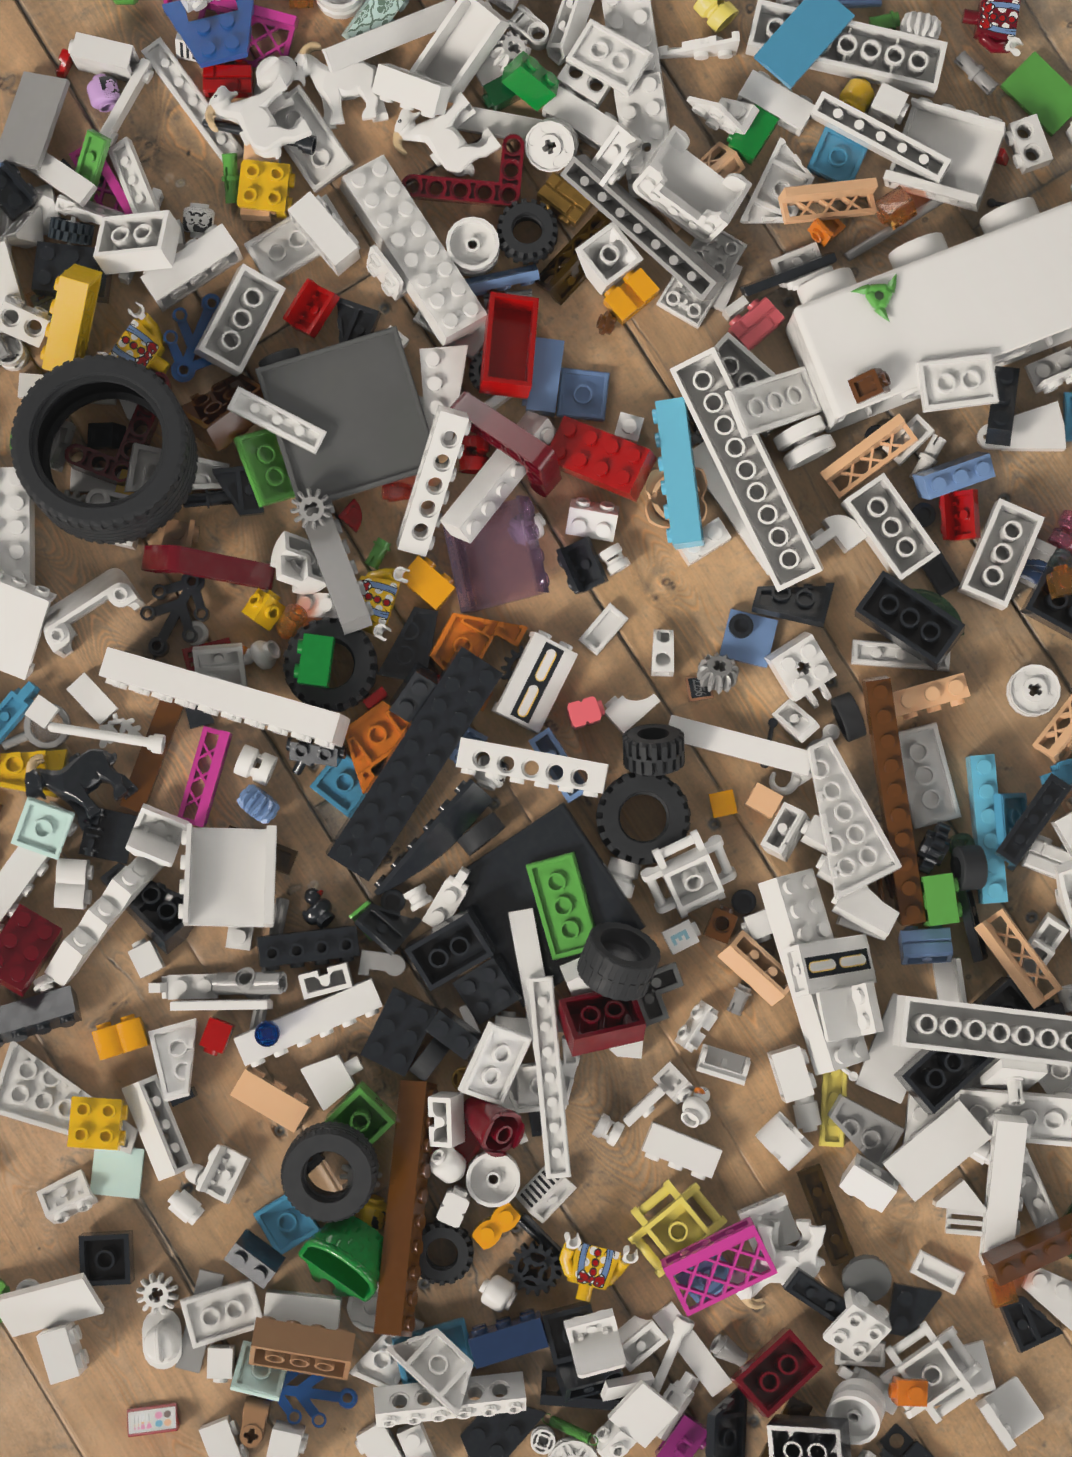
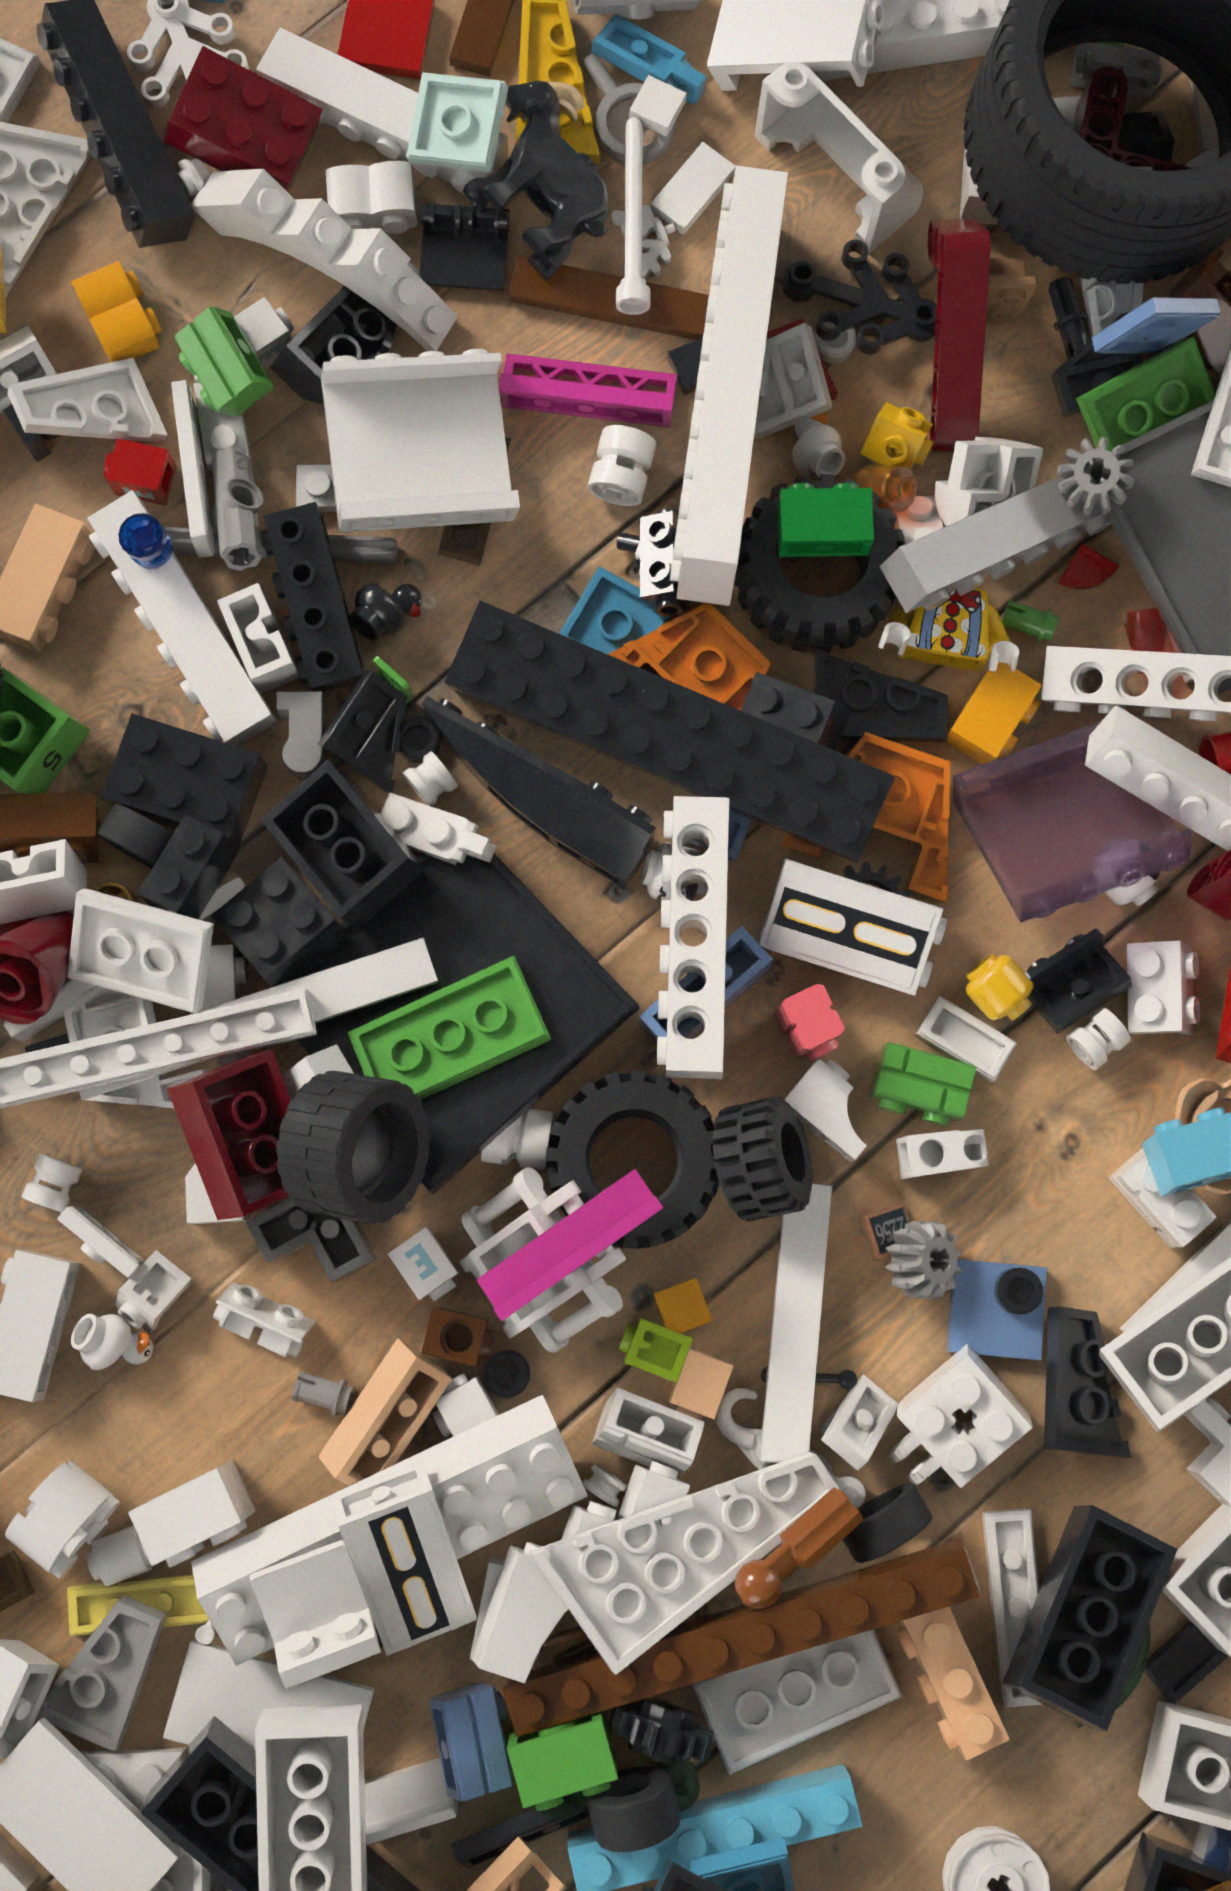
camera: 80 degrees right, 5 degrees down
(156, 835) = (470, 311): white bracket -> none
(165, 979) = (223, 362): none -> bright green brick
(230, 459) = (1156, 325): none -> medium blue tile
(258, 804) = (554, 478): medium blue gear -> none
(331, 1078) = (87, 675): white torso -> none
(378, 696) = (779, 655): red tile -> none
(481, 833) = (559, 870): black tyre -> none
(579, 607) = (999, 987): none -> yellow head
(624, 656) = (922, 1083): none -> bright green brick
(685, 857) = (569, 1244): none -> dark pink fence
(723, 1064) = (197, 1380): white hinge -> none
(742, 821) = (655, 1349): none -> lime bracket
(808, 858) = (605, 1485): none -> white bush
(852, 761) = (801, 1545): none -> dark orange piece

